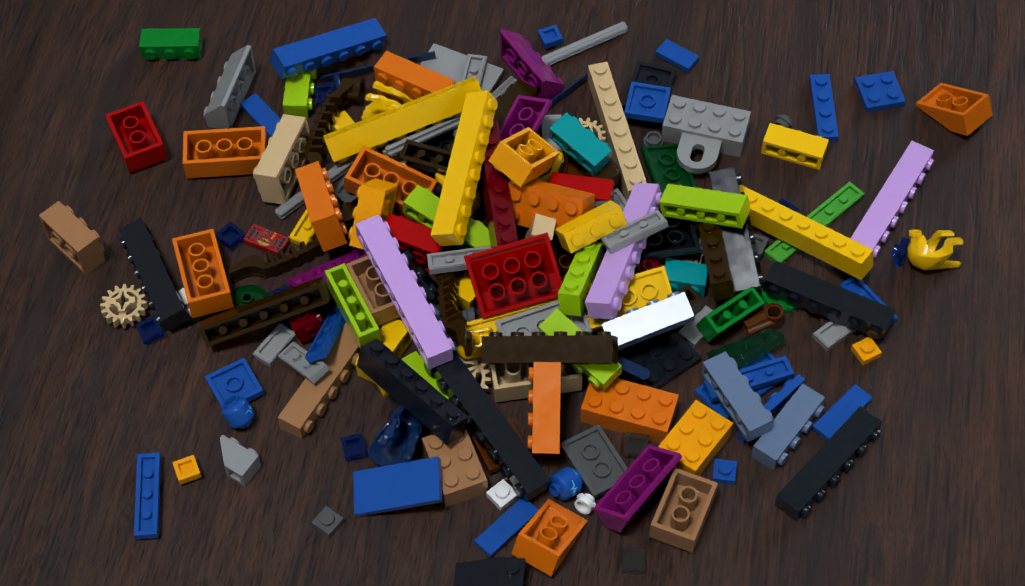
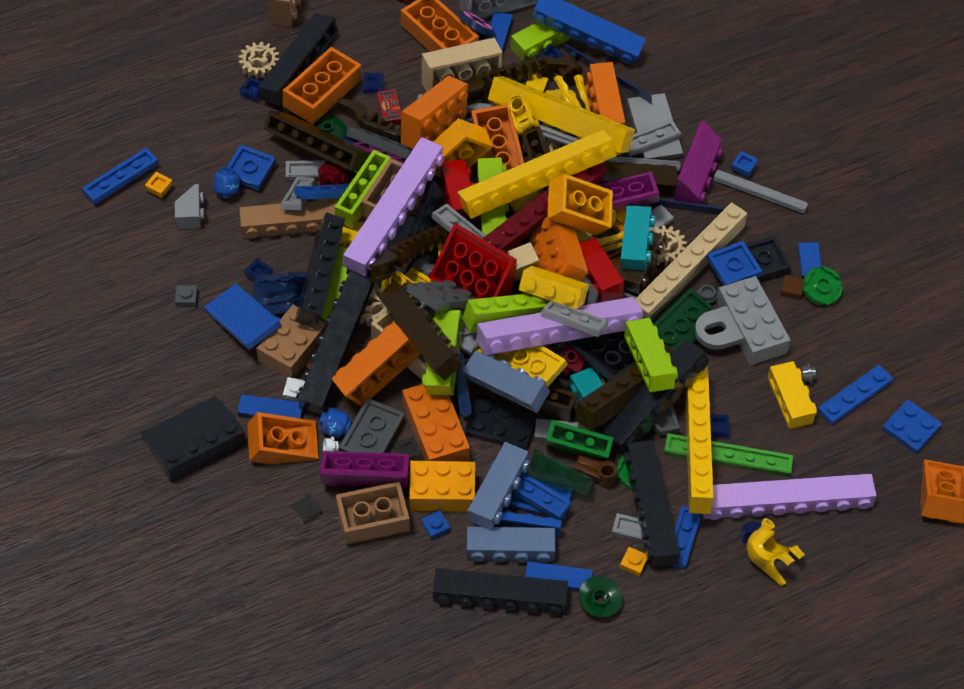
camera: 50 degrees right, 0 degrees up
(254, 119) = (476, 23): none -> dark blue tile
(301, 268) = (378, 141): none -> dark grey beam
(387, 145) = (524, 116): none -> yellow piece
(526, 313) = (440, 294): none -> dark grey plate
(692, 82) = (792, 287): none -> reddish brown tile
(709, 62) = (822, 286): none -> green tile
(889, 387) = (605, 589): none -> dark green dish

